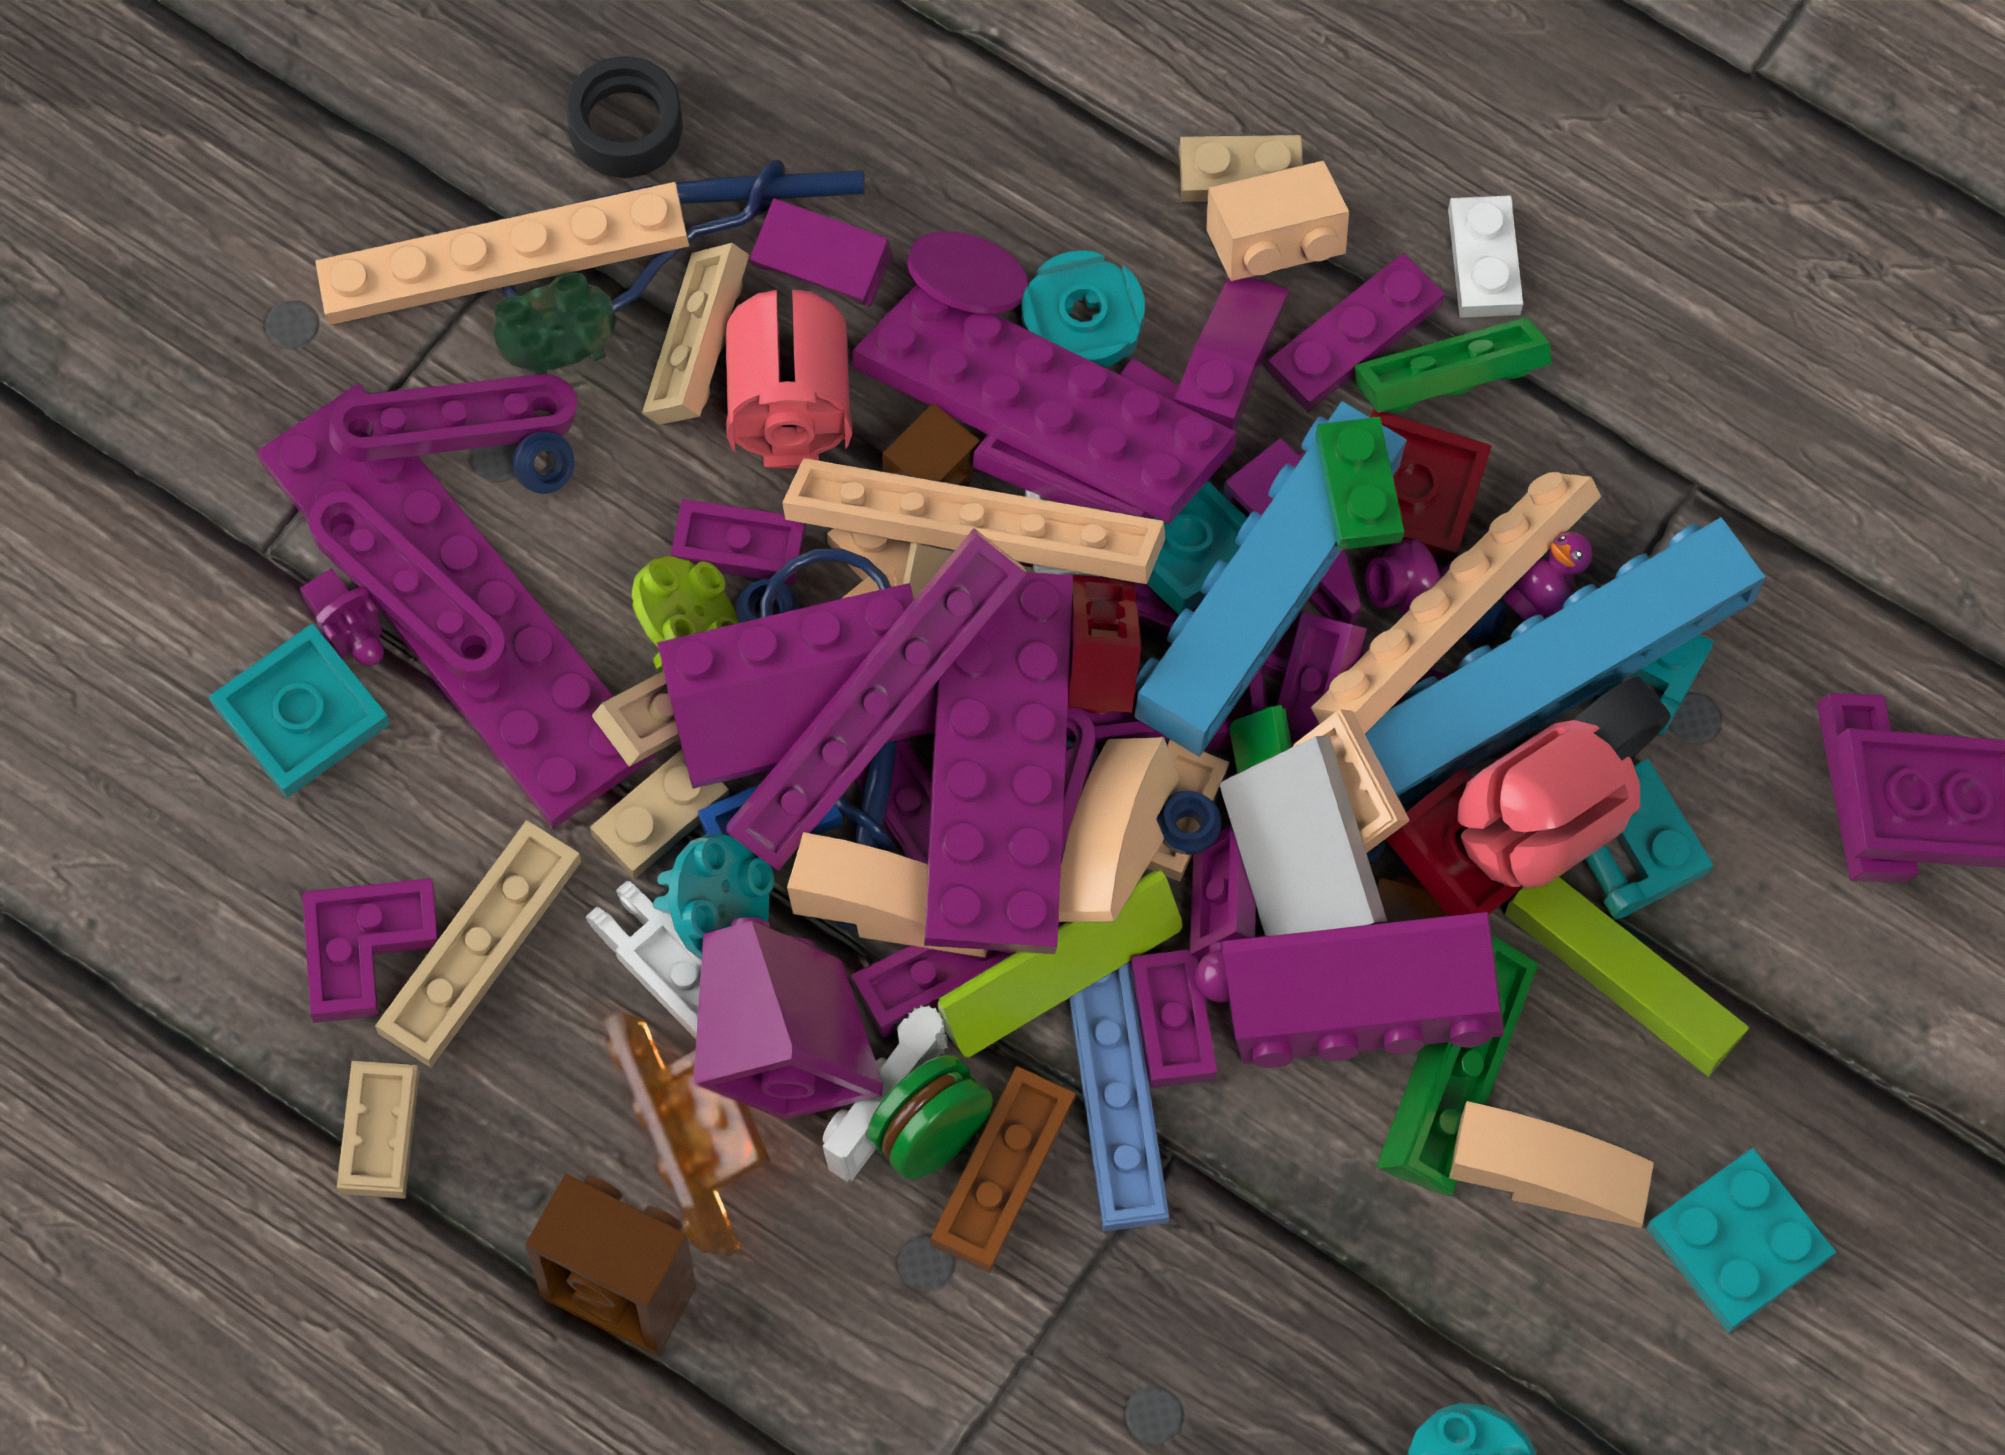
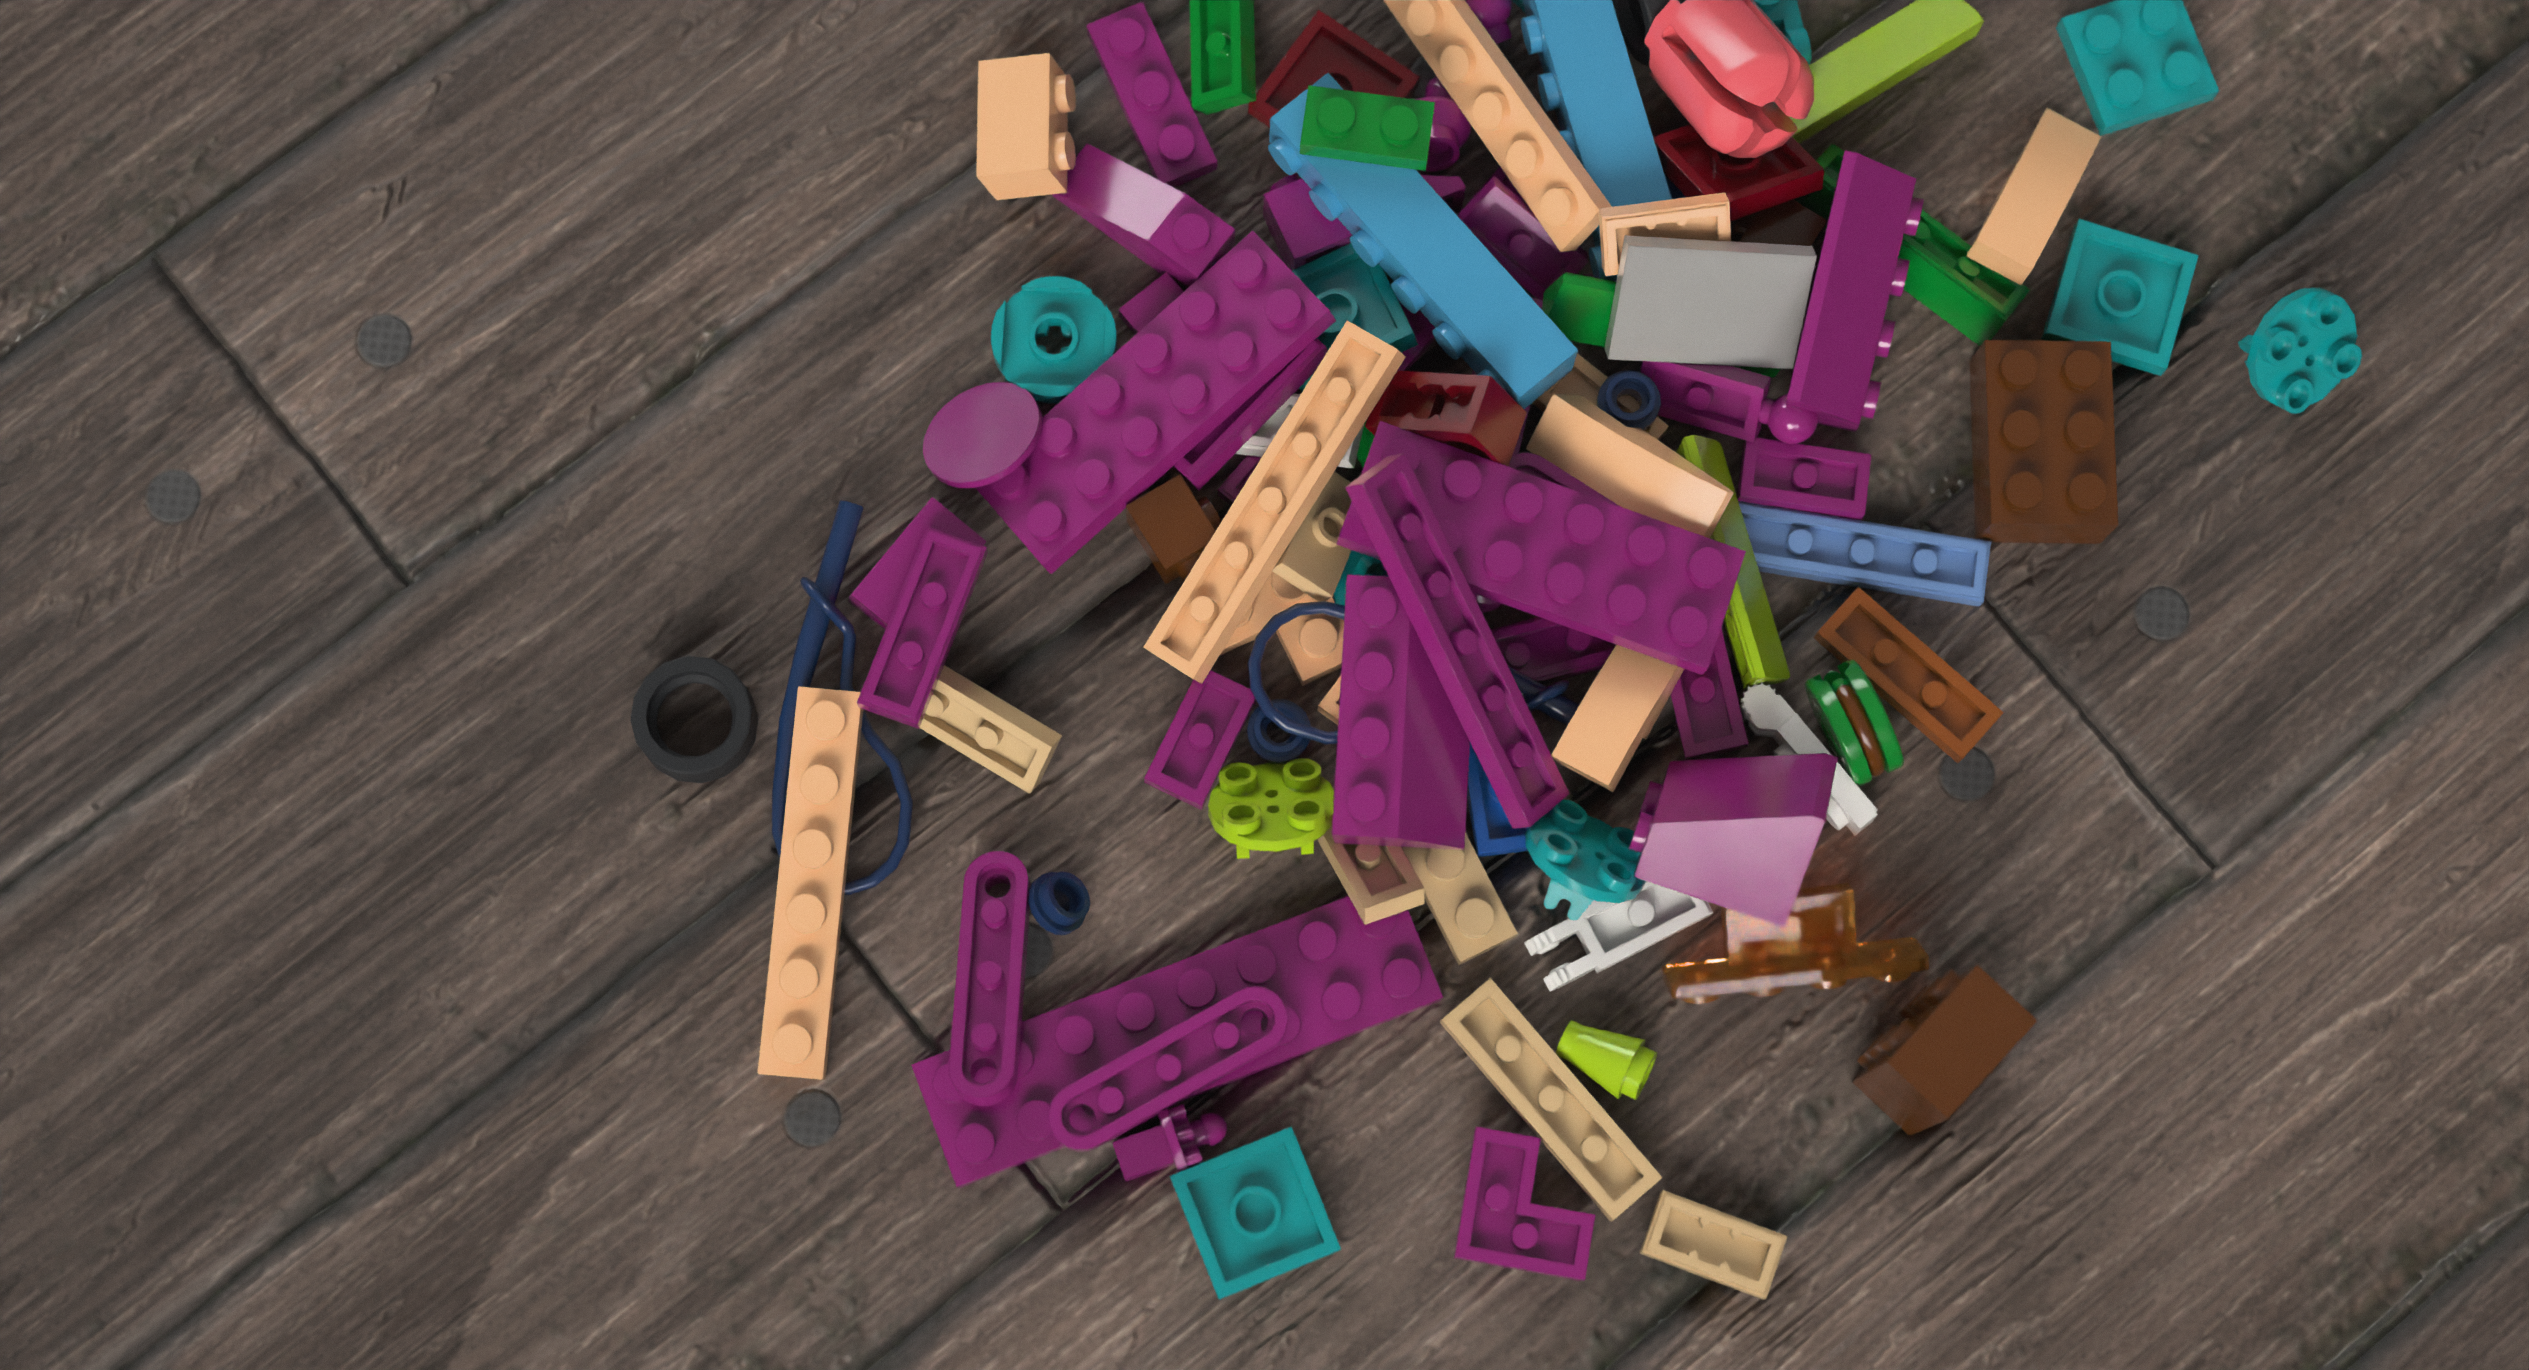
camera: 75 degrees left, 10 degrees up
(533, 988) = (1608, 1058): none -> lime cone
(554, 324) = (914, 821): clear green plate -> none
(758, 261) = (922, 627): none -> magenta tile
(764, 403) = (1047, 637): coral cylinder -> none
(1228, 159) = (939, 148): tan plate -> none
(1286, 1234) = (2043, 441): none -> reddish brown brick
(1471, 1279) = (2121, 293): none -> teal plate

